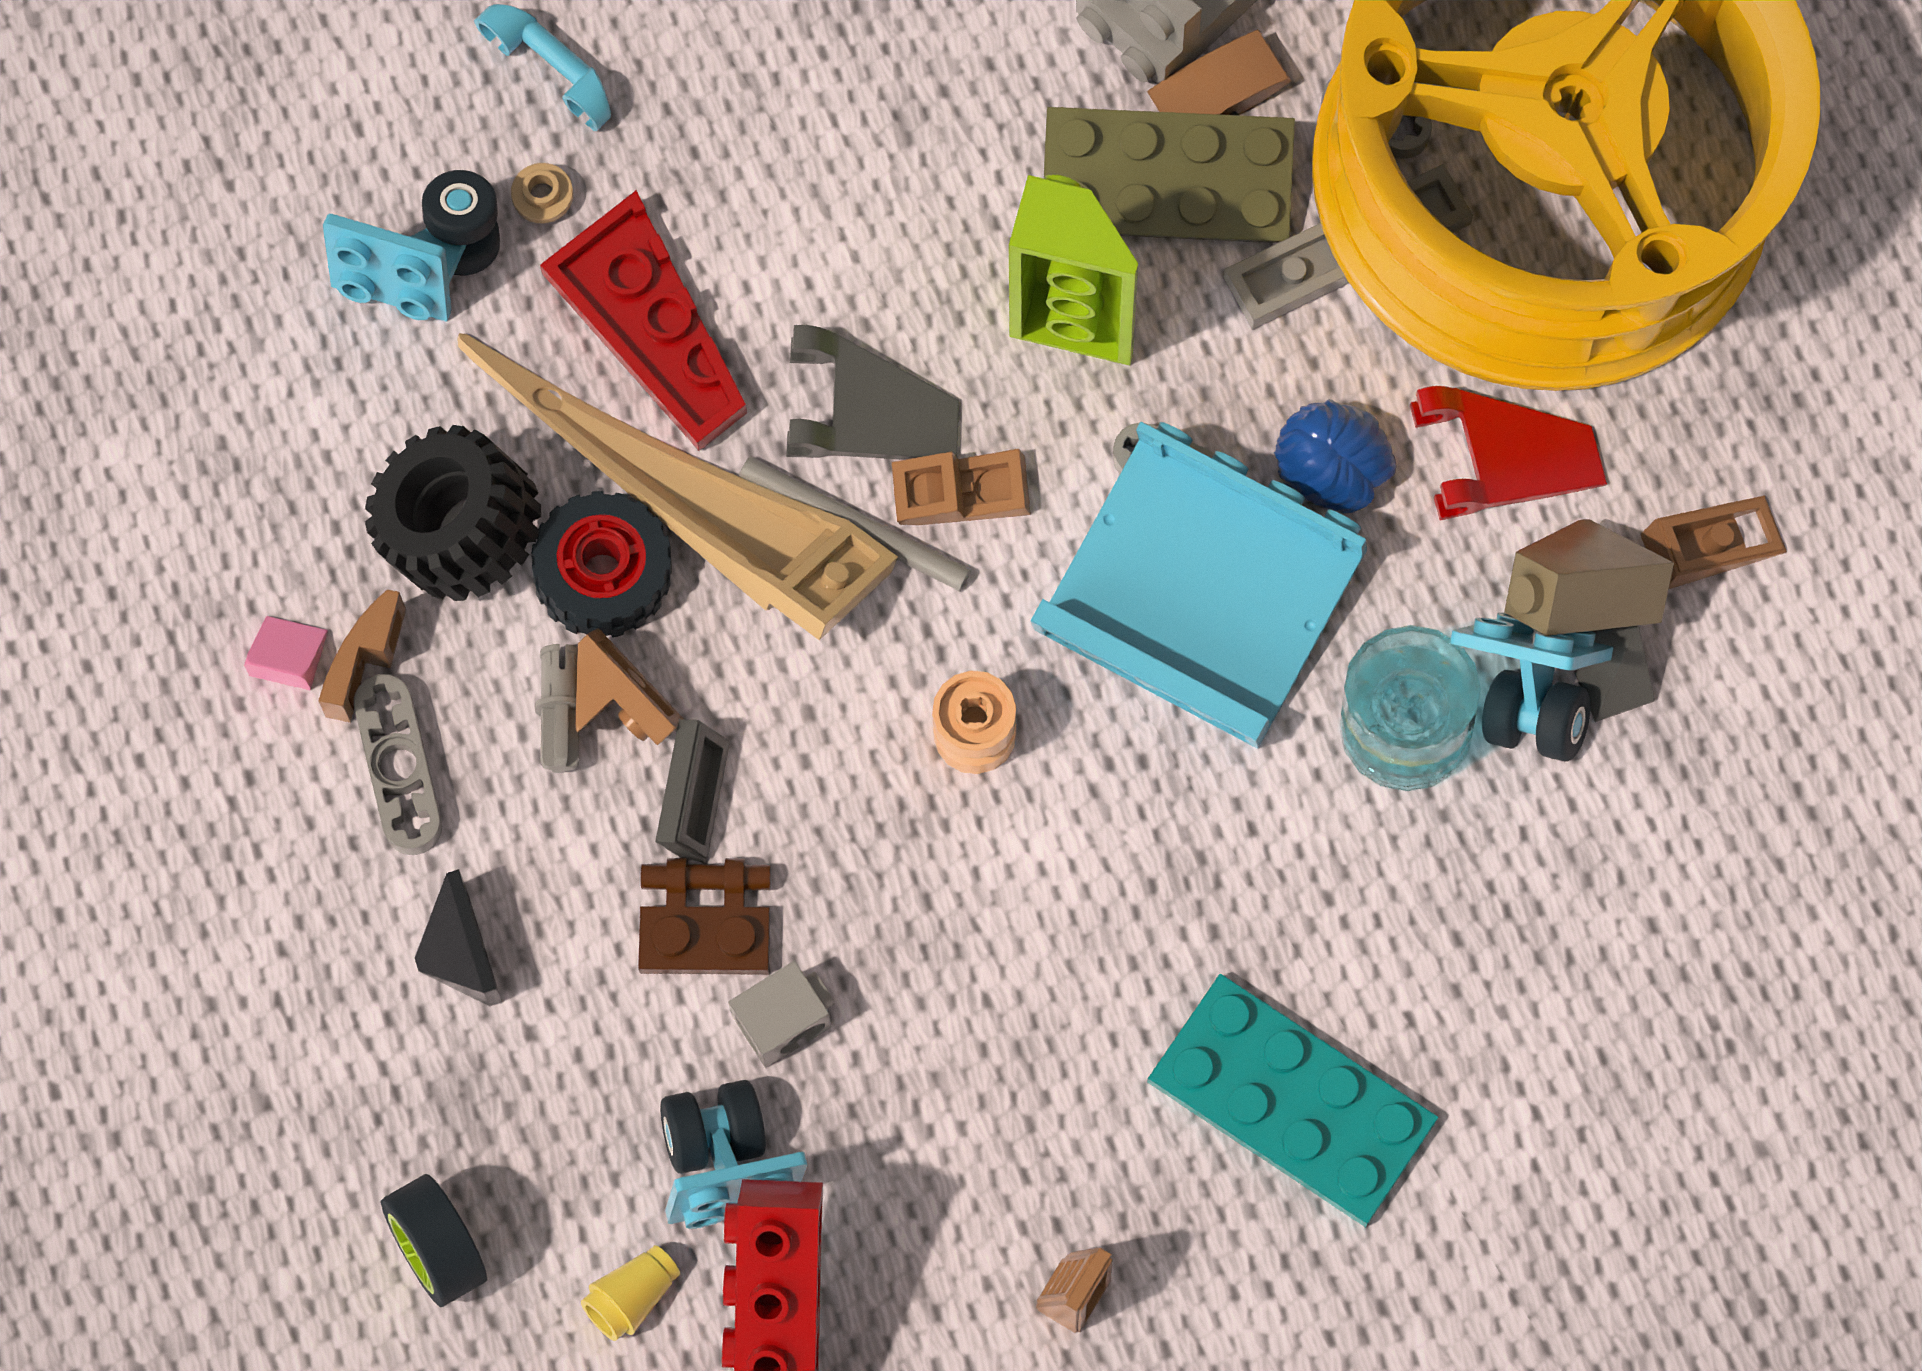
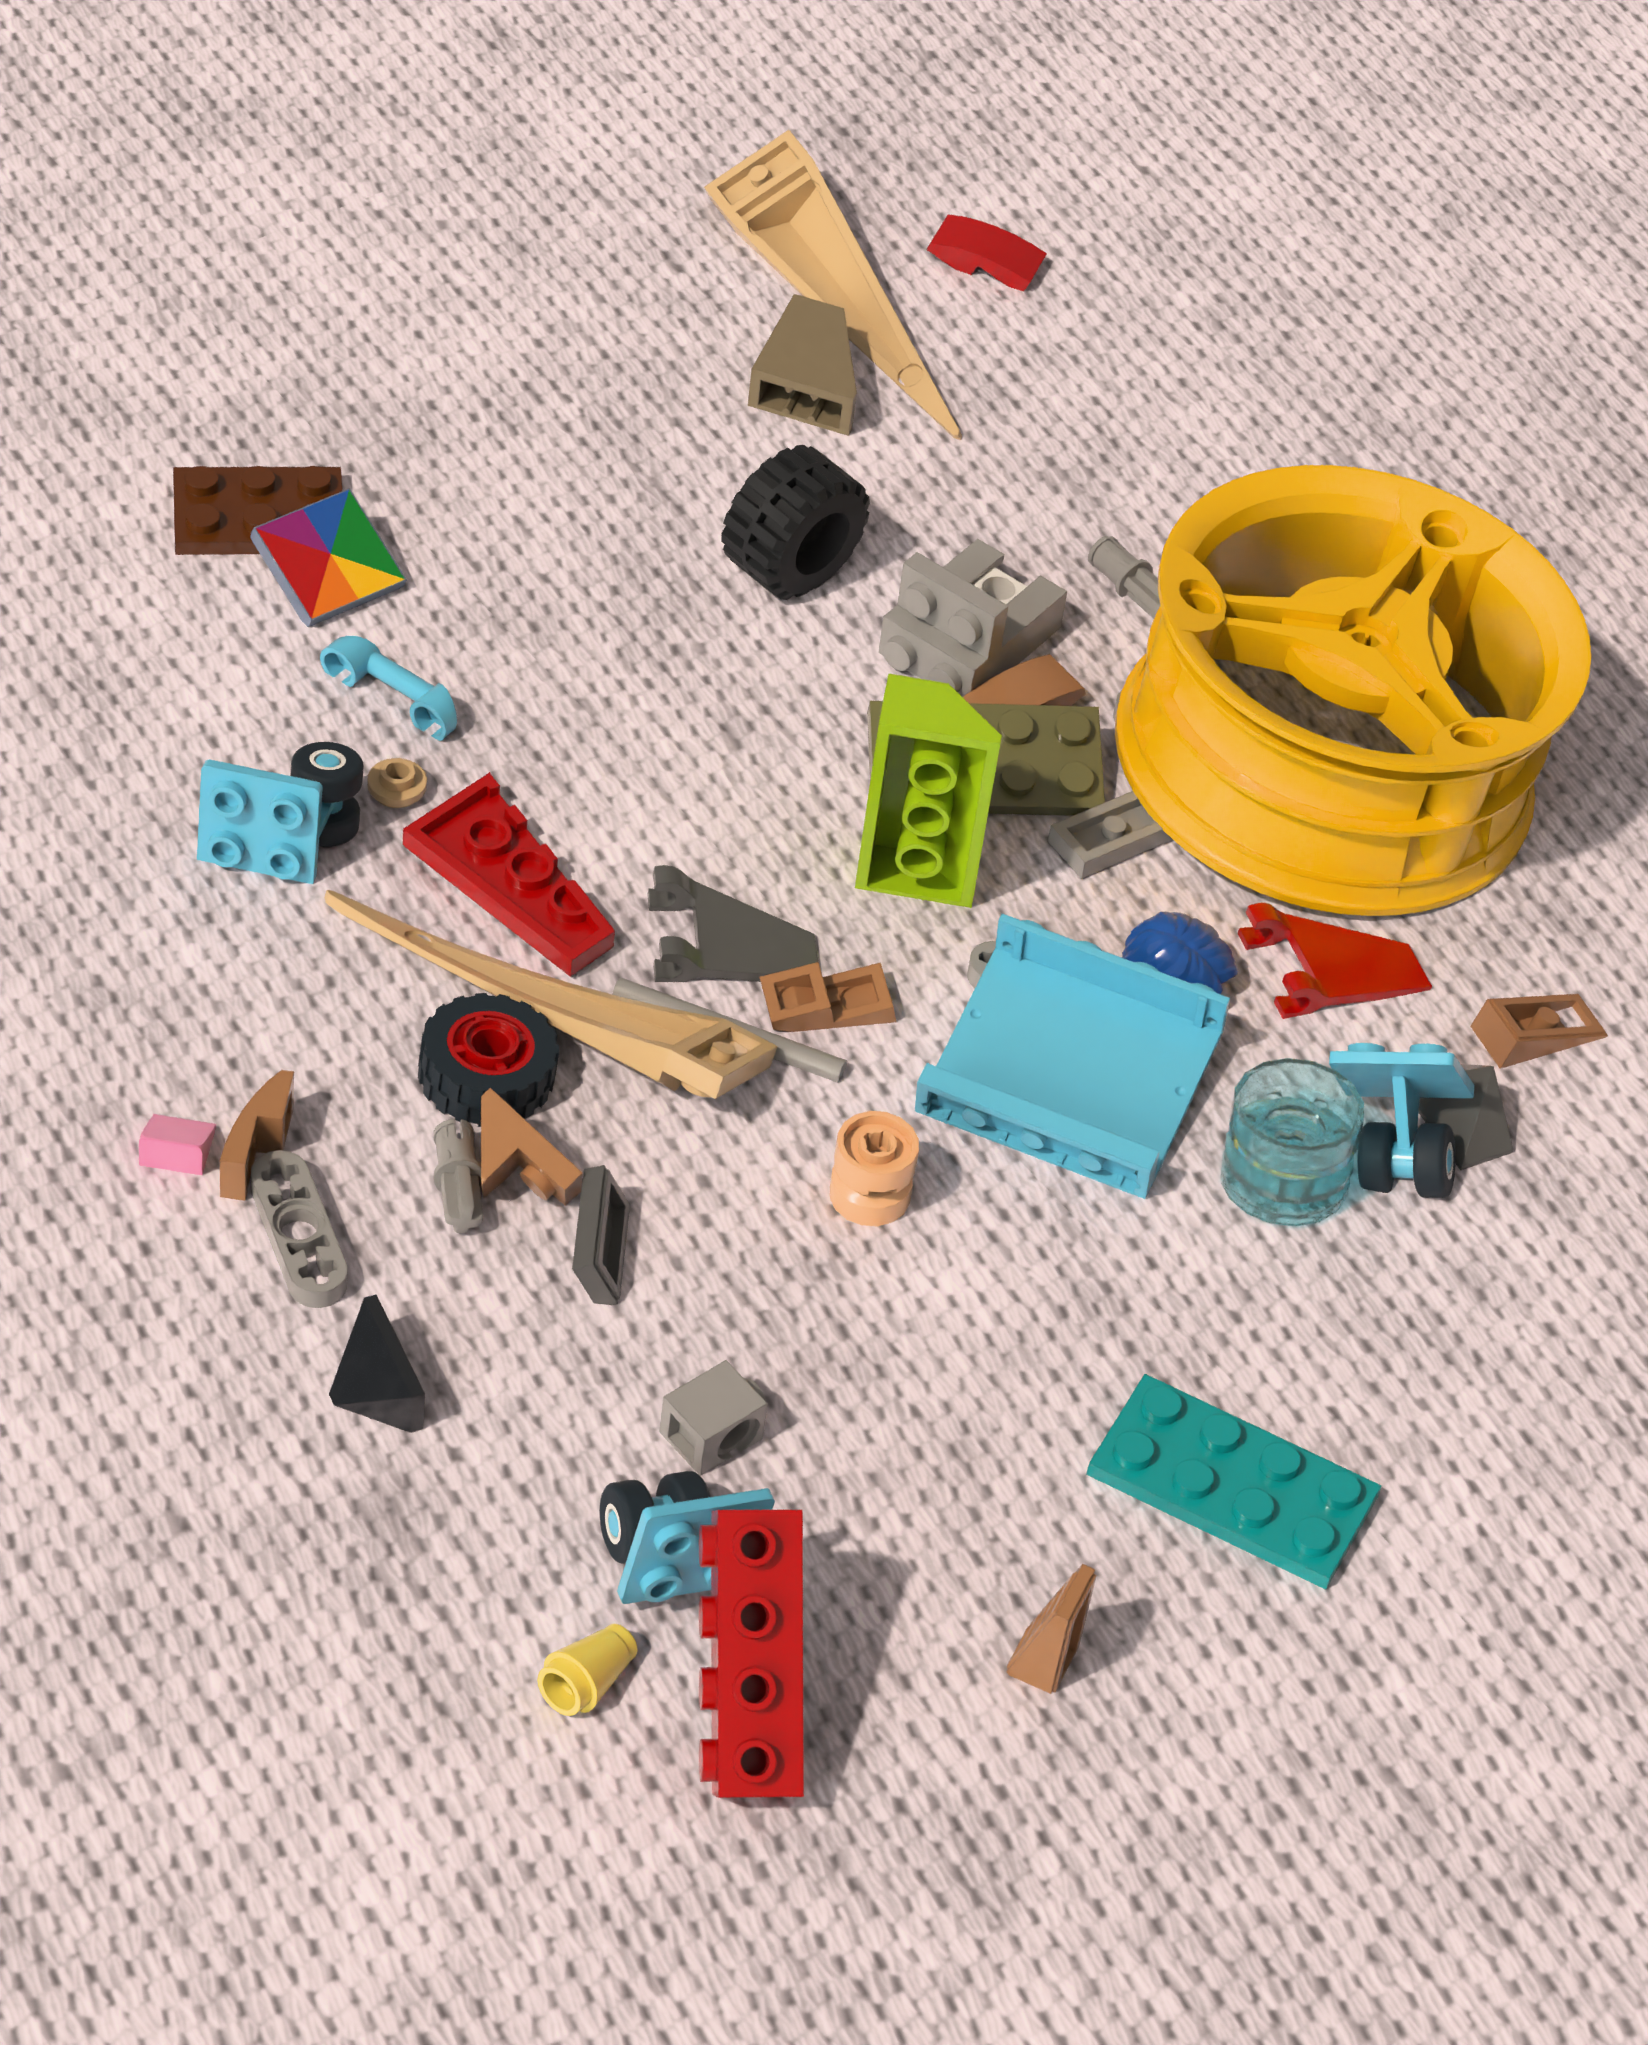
camera: 15 degrees left, 25 degrees down
(425, 486) = (342, 1007): black tyre -> none
(434, 1240) = (381, 1616): black wheel -> none
(704, 938) = (625, 1363): reddish brown plate -> none
(1587, 582) = (1464, 1022): dark tan slope -> none

